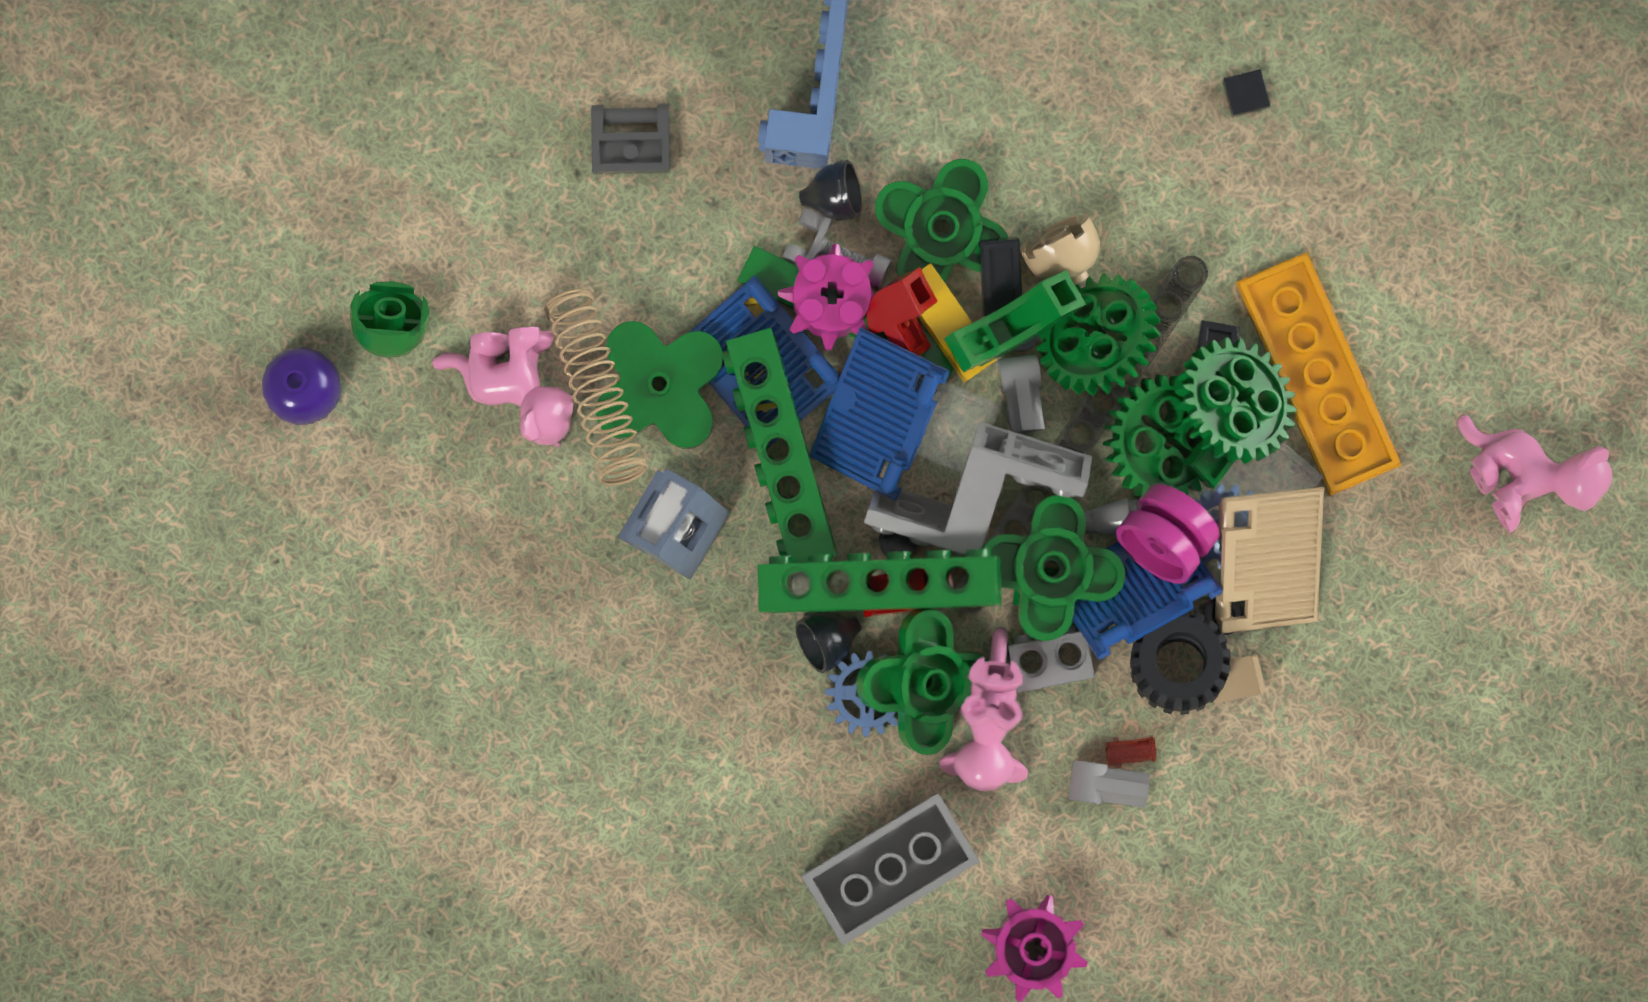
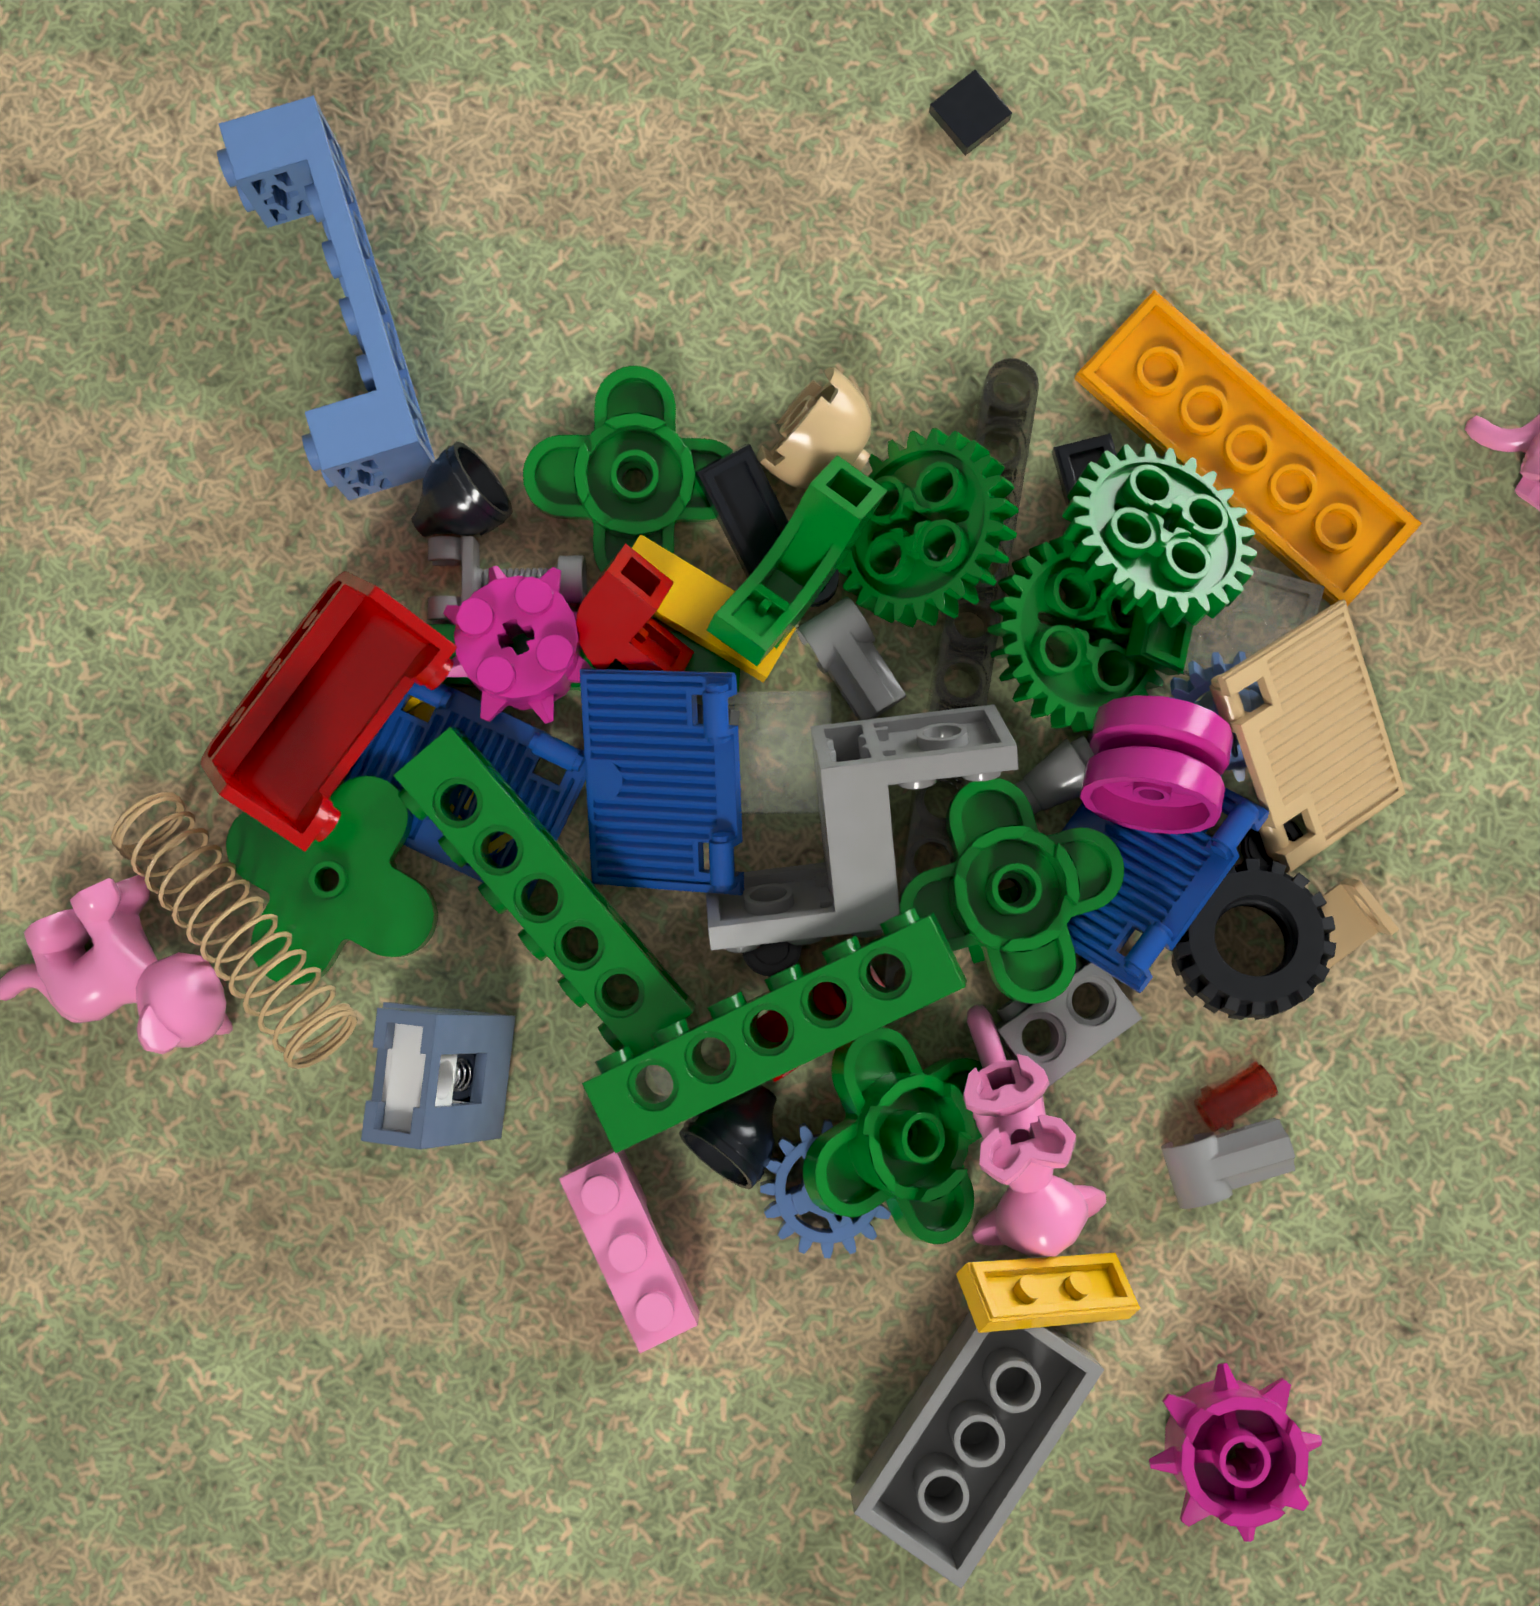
camera: 25 degrees left, 0 degrees up
(630, 150) = (148, 567): dark grey plate -> none
(702, 279) = (322, 707): none -> red windscreen
(738, 674) = (629, 1250): none -> bright pink arch
(968, 806) = (1046, 1291): none -> yellow tile

